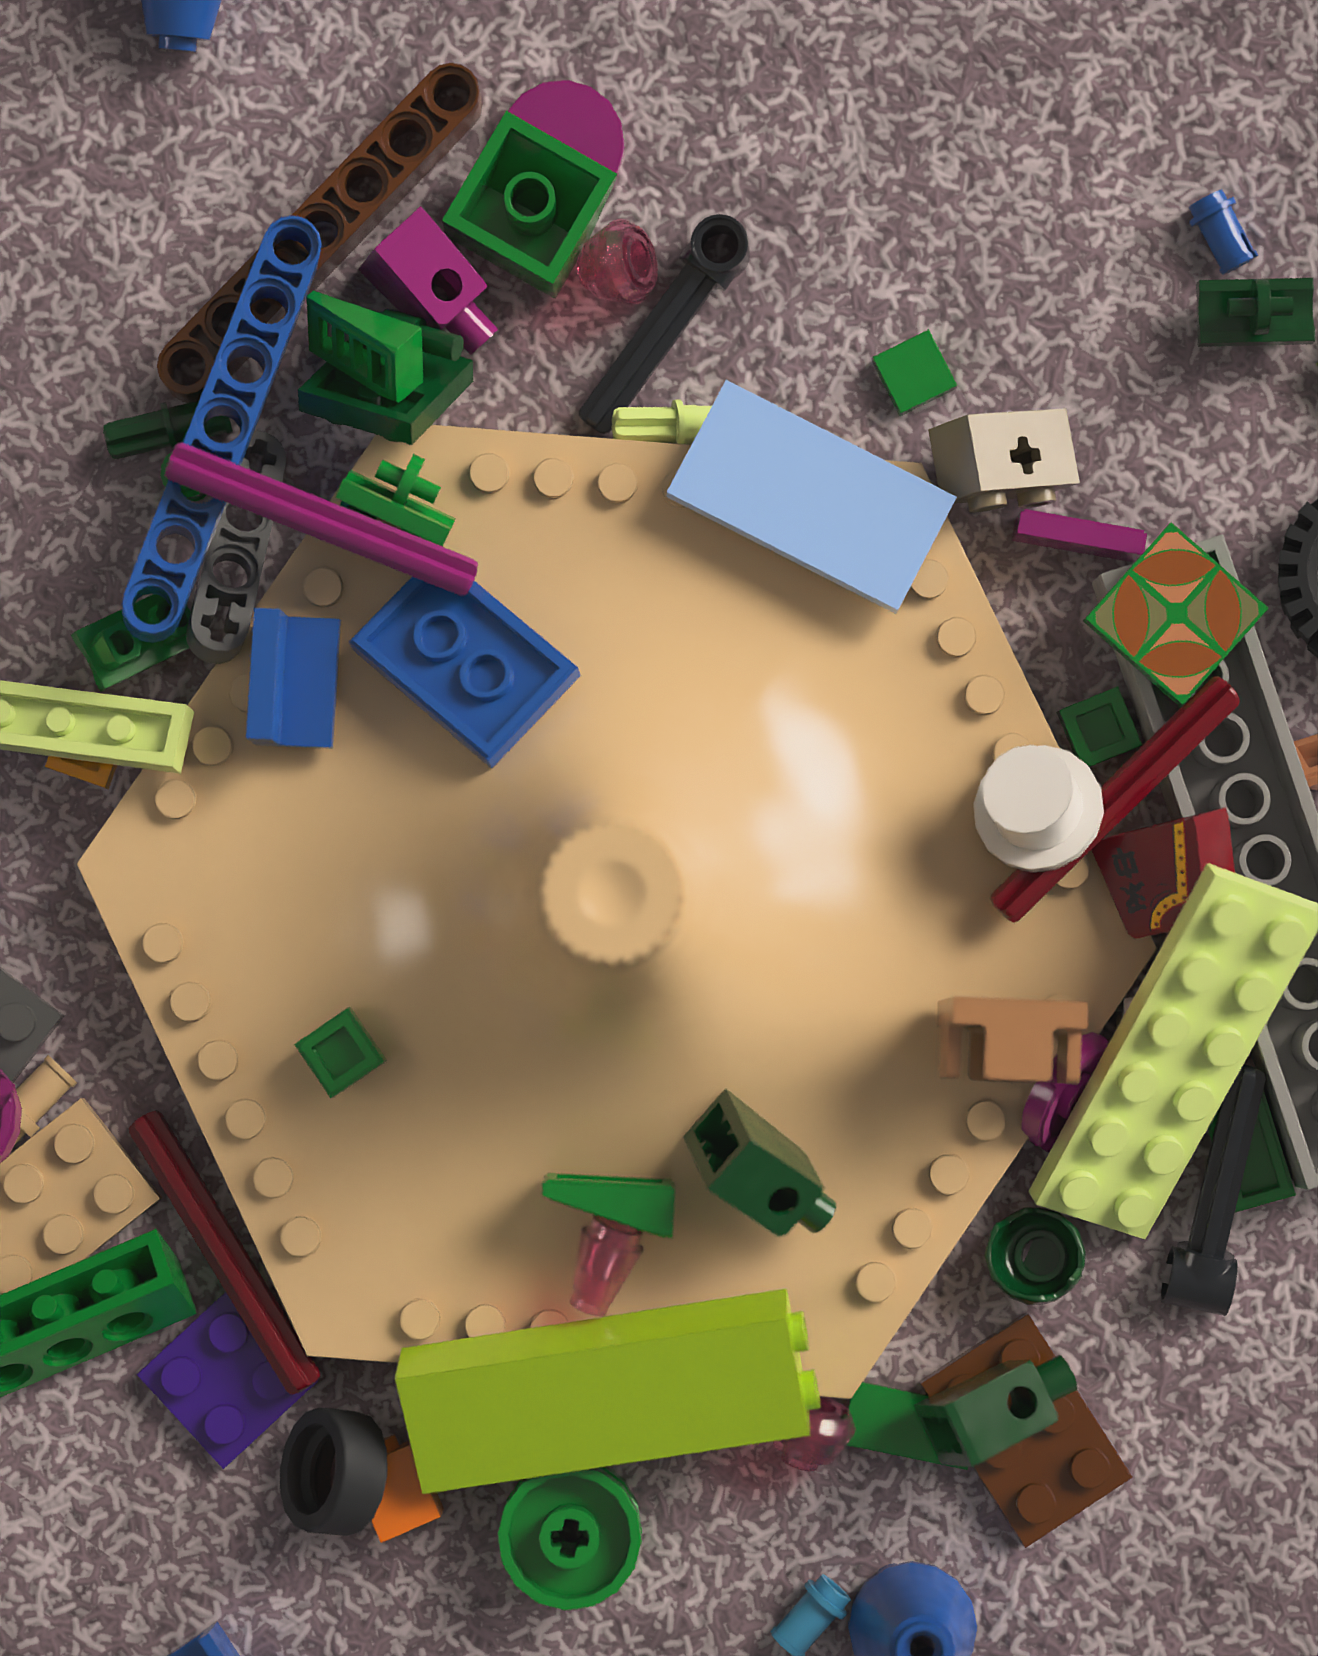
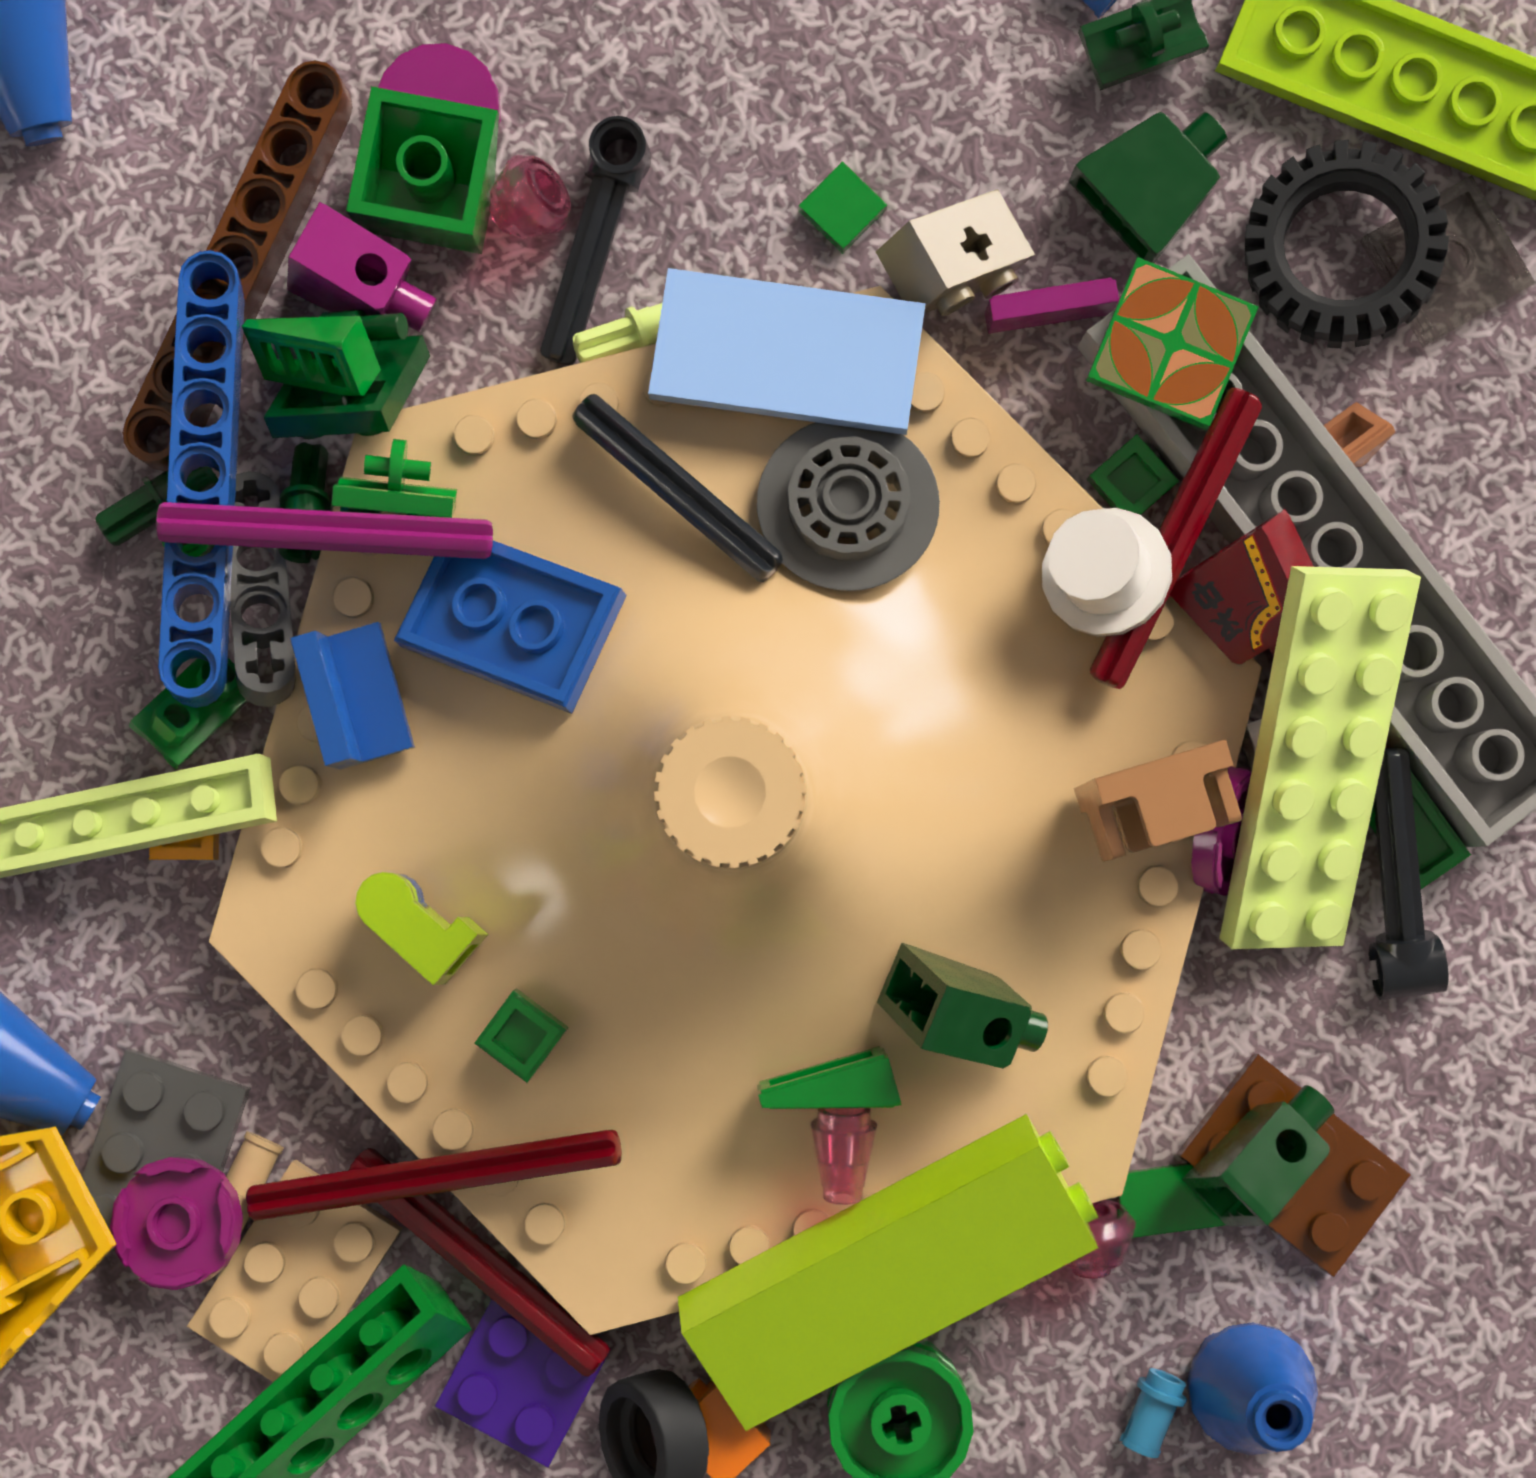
camera: 15 degrees left, 0 degrees up
(213, 1154) = (434, 1175): none -> dark red axle
(266, 901) = (397, 913): none -> lime leg
(312, 468) = (306, 491): none -> dark green axle
(663, 590) = (677, 487): none -> black axle
(818, 658) = (848, 501): none -> dark grey wheel
(1051, 1264) = (1263, 997): dark green hair -> none
(1217, 449) = (1151, 180): none -> dark green torso

